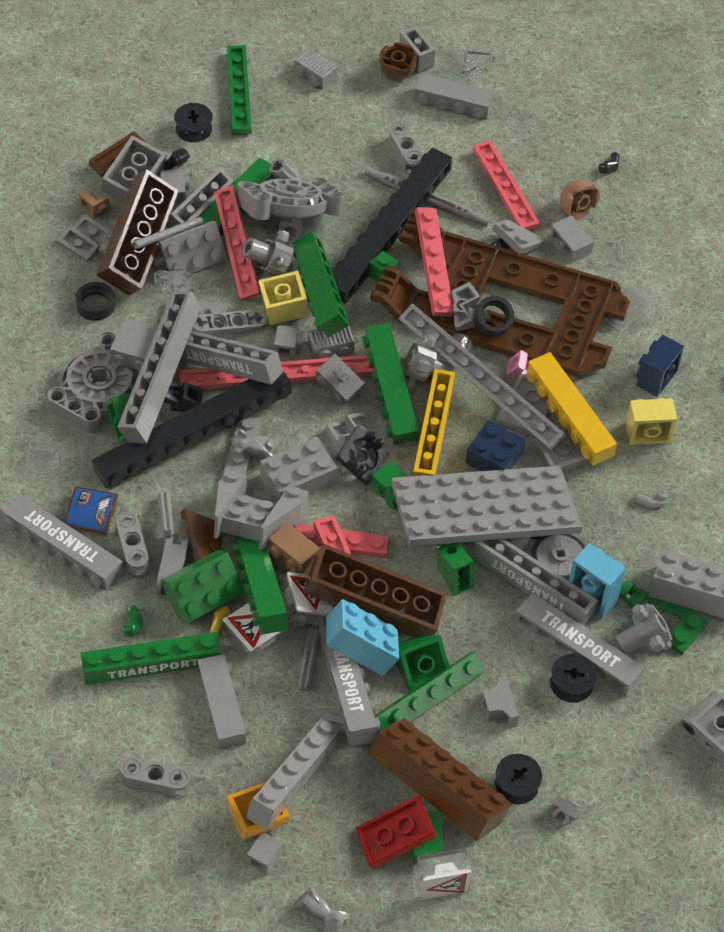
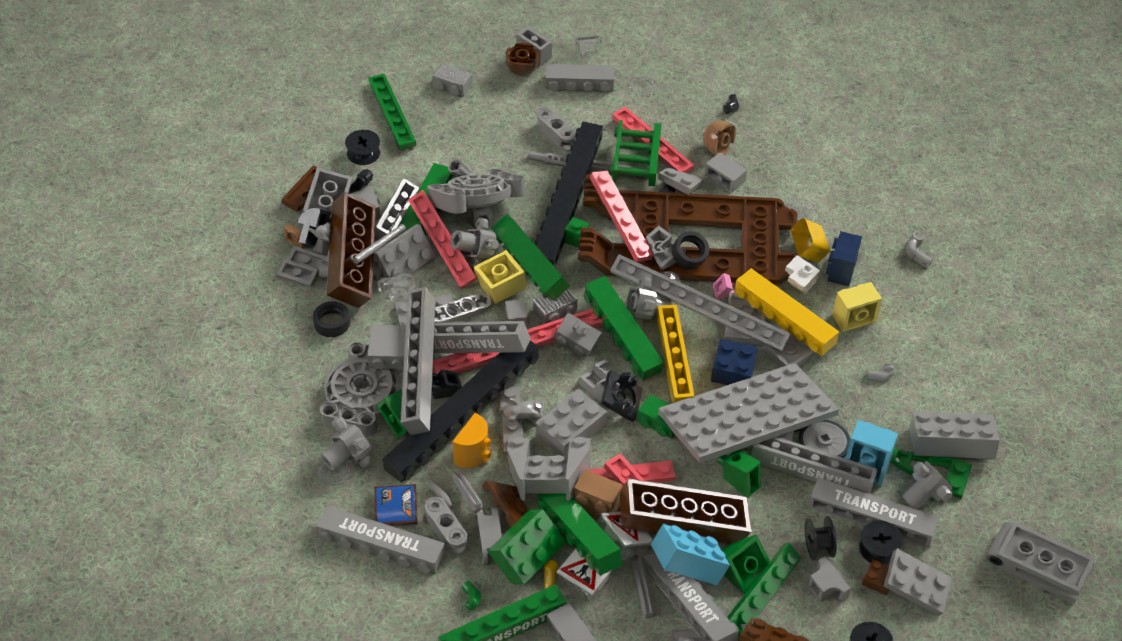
camera: 15 degrees left, 5 degrees down
(61, 437) = (348, 445): none -> light grey piece
(107, 194) = (312, 219): none -> brick
(113, 208) = (323, 239): none -> light grey animal
(141, 513) = (440, 493): none -> light grey piece
(187, 467) = (472, 444): none -> light orange brick
(493, 207) = (650, 160): none -> green fence
(509, 656) = (820, 538): none -> black piece
(558, 712) = (876, 577): none -> reddish brown piece
(594, 728) = (917, 582): none -> light grey plate
(606, 372) = (802, 274): none -> white brick
(631, 336) = (800, 233): none -> yellow piece

